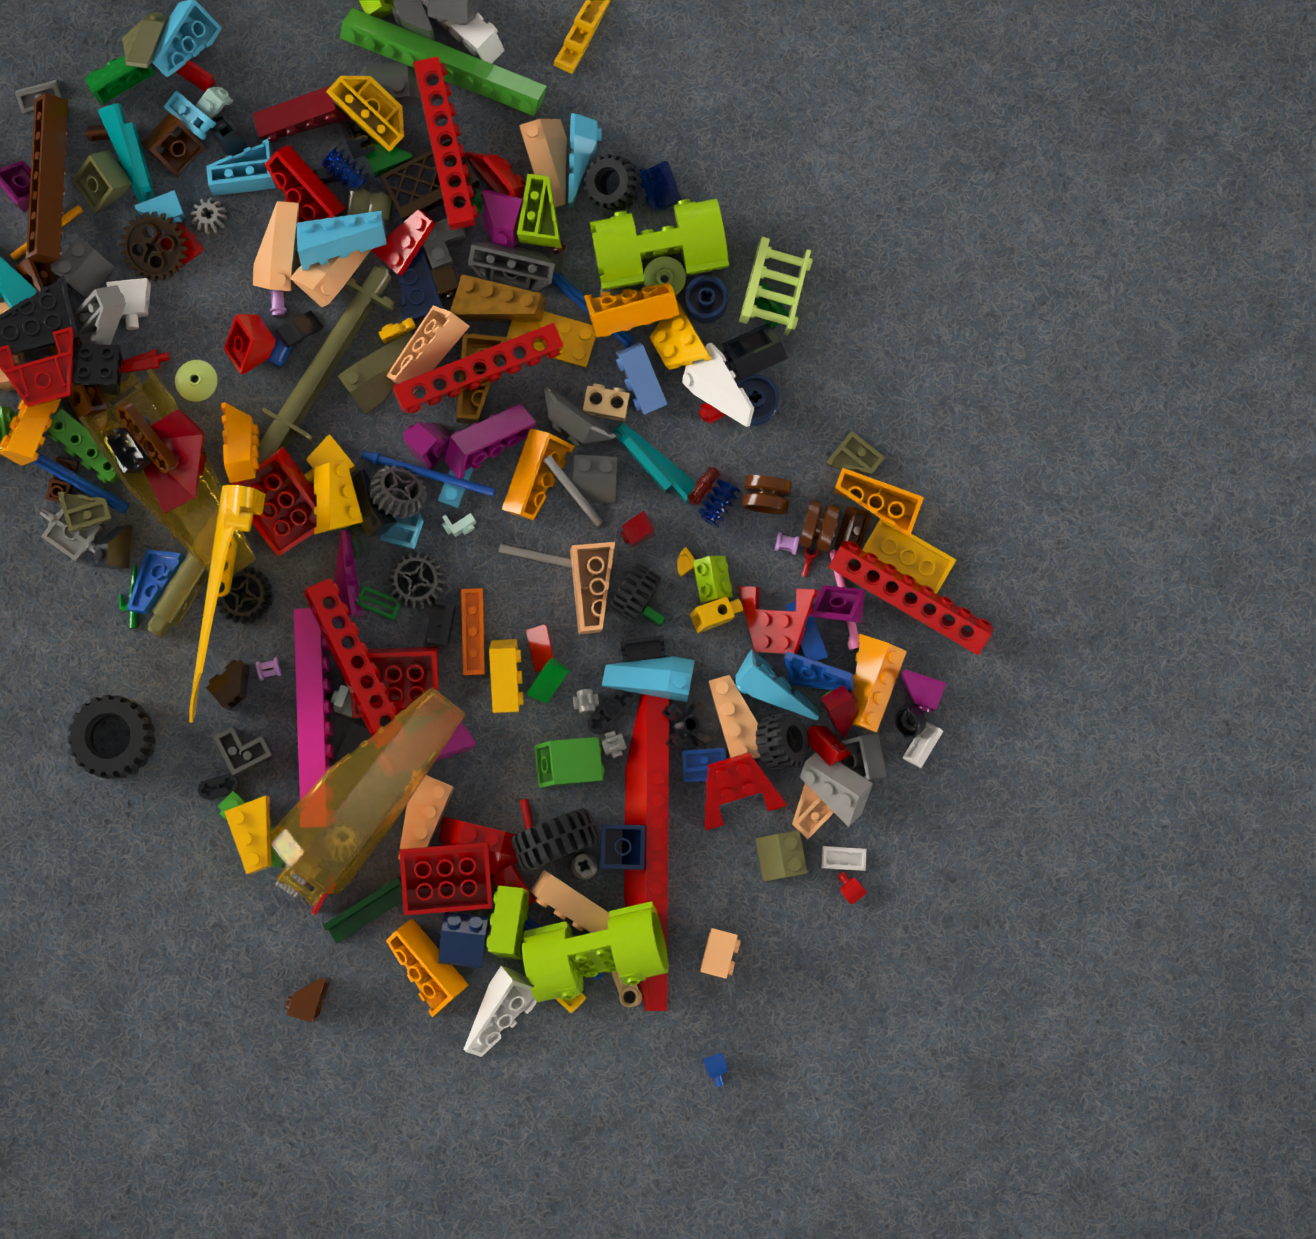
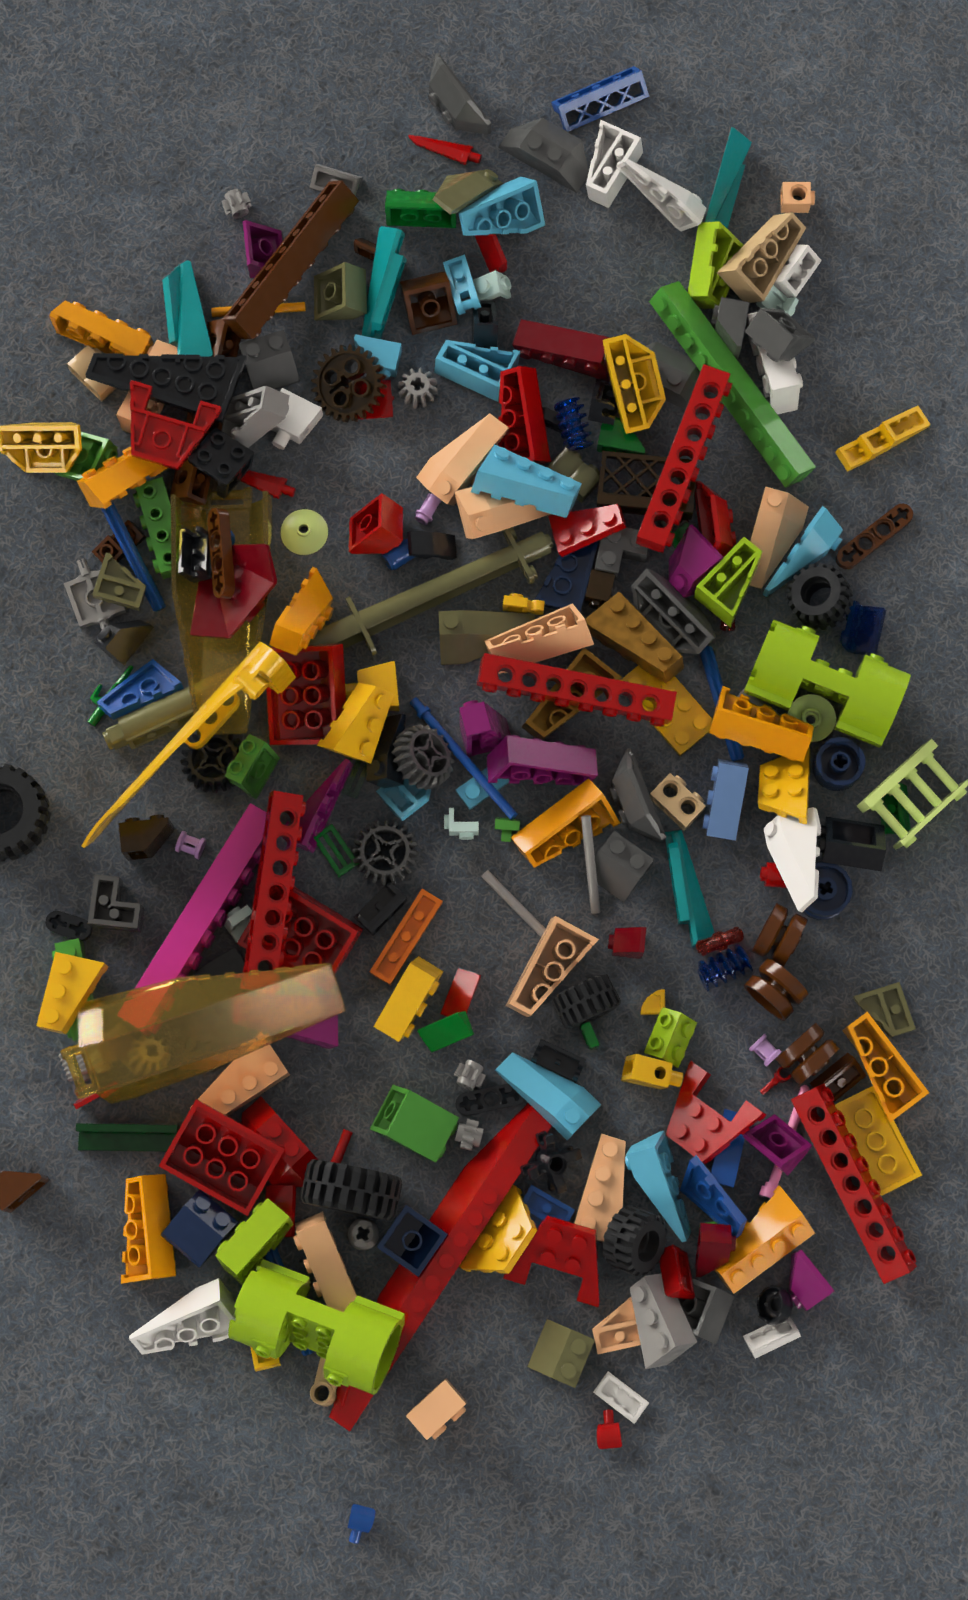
camera: 30 degrees right, 5 degrees down
(111, 15) = (453, 151): none -> red bar
(275, 580) = (252, 766): none -> bright green plate
(493, 502) = (507, 826): none -> bright green tile
(621, 110) = (872, 534): none -> reddish brown beam
(686, 801) = (503, 1237): none -> yellow wing
(747, 452) = (780, 935): none -> reddish brown wheel

